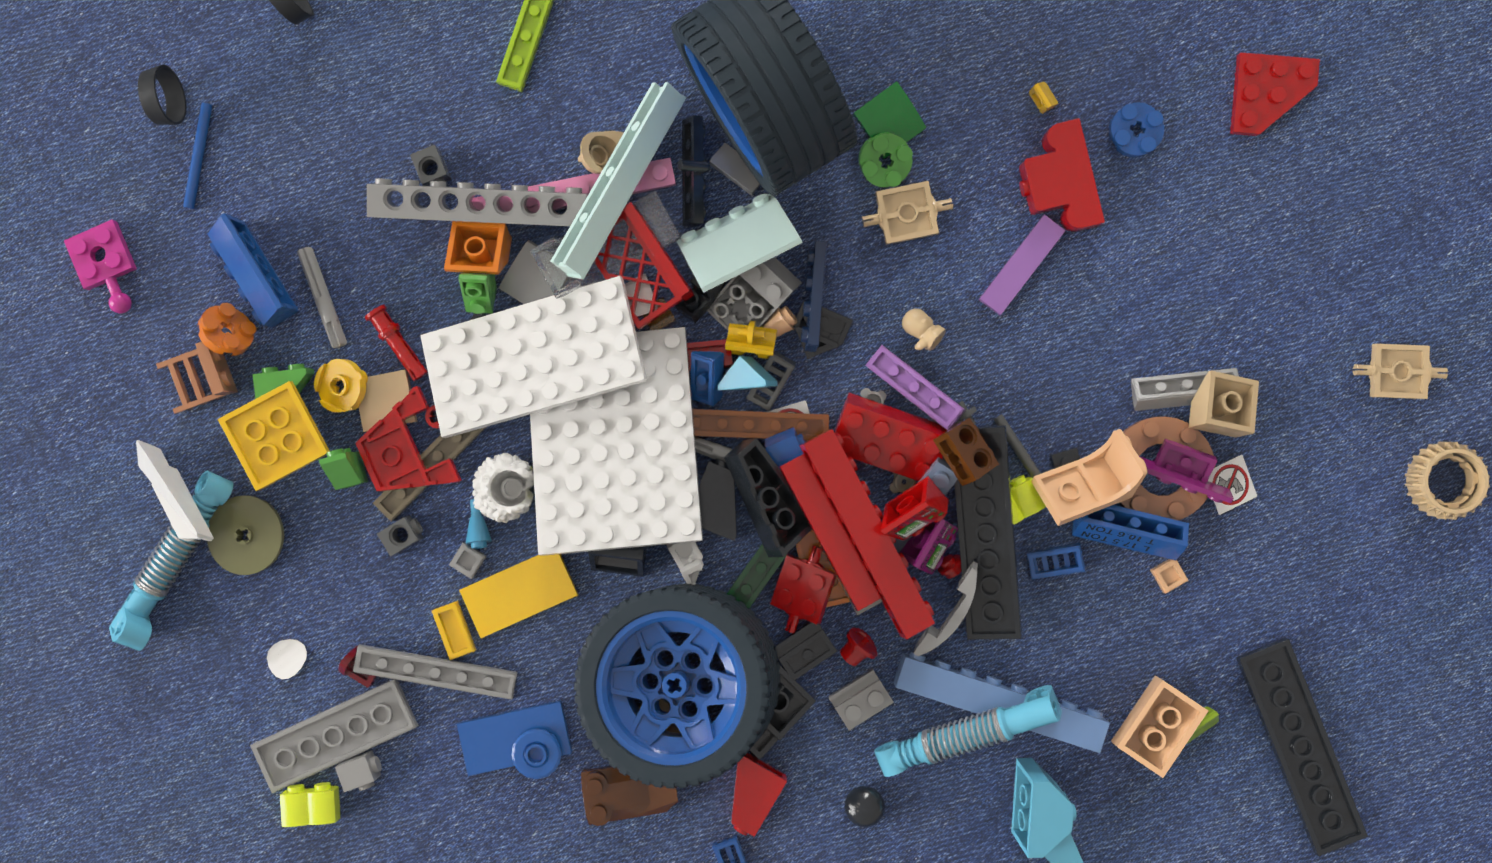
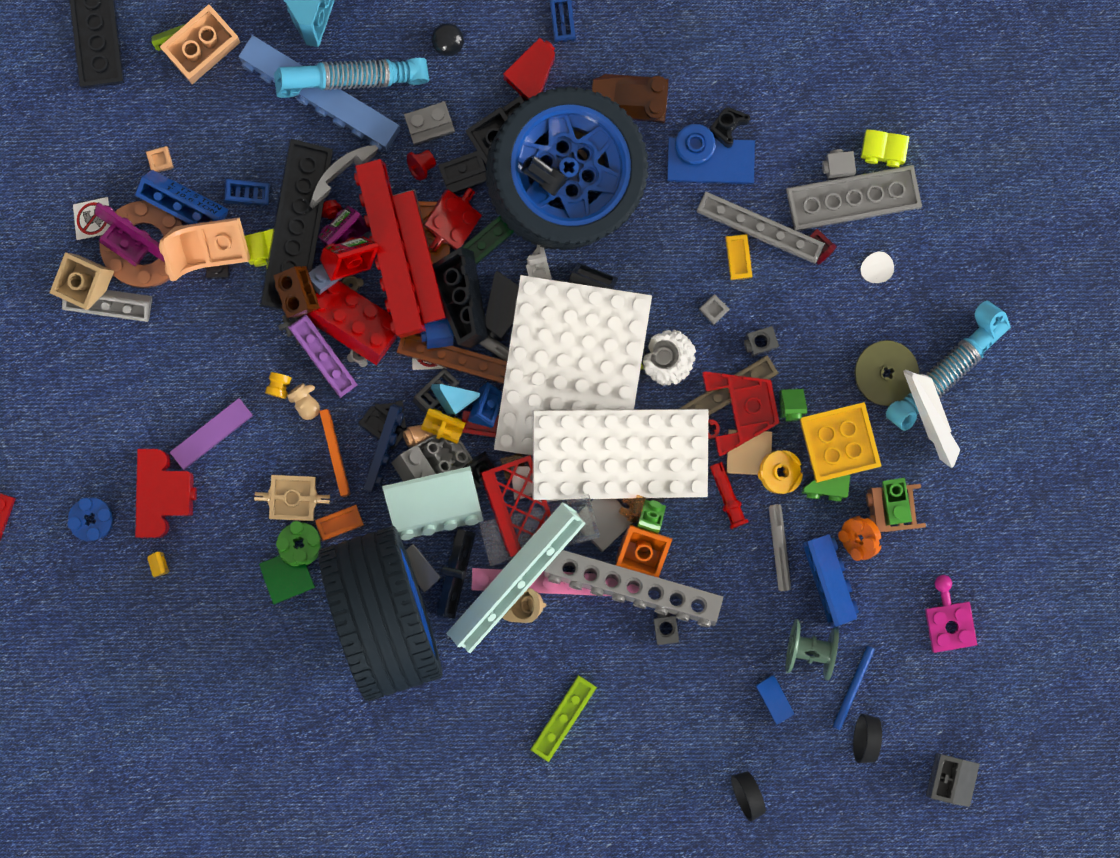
camera: 175 degrees left, 5 degrees down
(56, 75) = (952, 780): none -> dark grey slope
(191, 381) = (895, 502): none -> bright green slope
(232, 184) = (822, 651): none -> sand green piece
(286, 118) = (774, 699): none -> blue slope
(477, 531) = (700, 329): dark azure cone -> none
(500, 298) = (634, 512): none -> clear orange tile
(506, 787) = (727, 123): none -> black piece
(518, 593) = (680, 273): yellow tile -> none
(696, 666) = (547, 177): none -> black piece
(844, 198) = (339, 522): none -> orange tile
(870, 277) = (335, 453): none -> orange tile
(958, 340) = (278, 385): none -> yellow wheel
(1017, 447) = (253, 290): dark grey bar -> none

